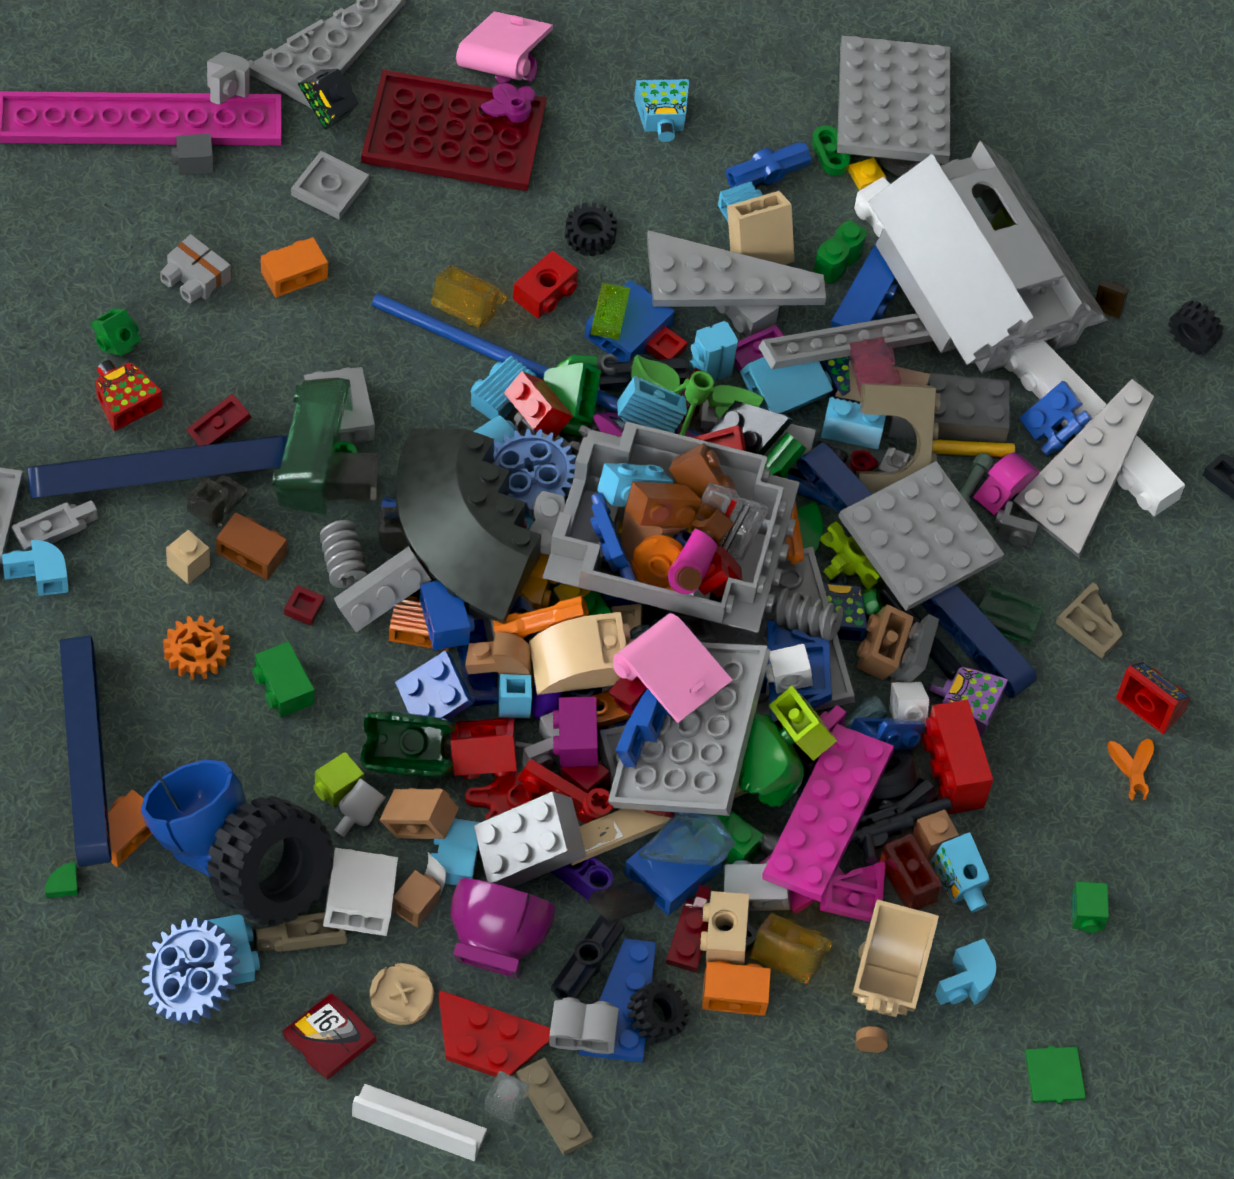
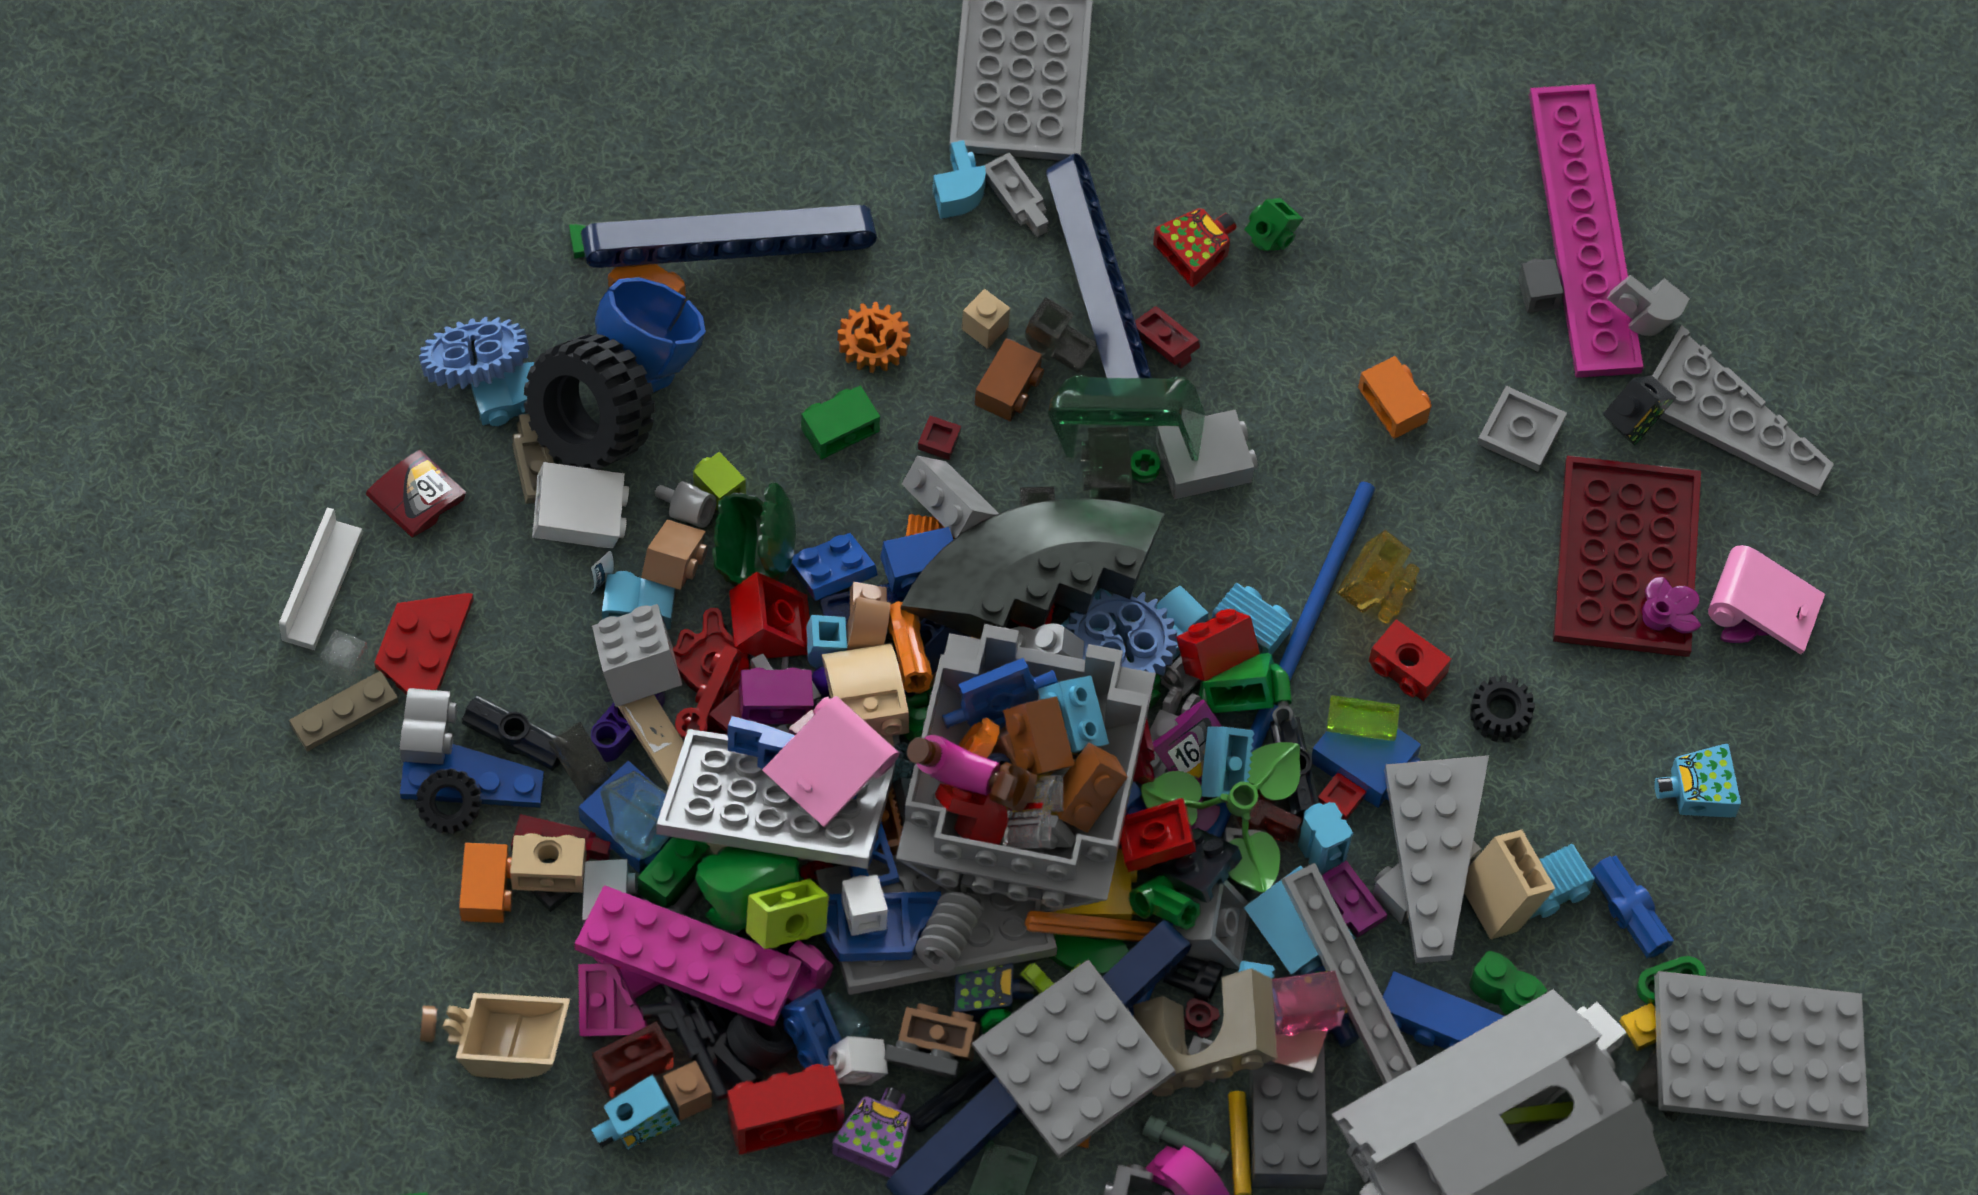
camera: 90 degrees right, 5 degrees up
(196, 268) = (1378, 300): light grey hips -> none
(342, 553) = (1005, 467): light grey piece -> none
(401, 994) = (470, 561): tan tile -> none
(416, 898) = (574, 563): medium nougat brick -> none
(498, 925) = (535, 630): magenta plate -> none
(790, 948) = (532, 932): clear yellow brick -> none
(975, 975) = (512, 1136): medium azure brick -> none

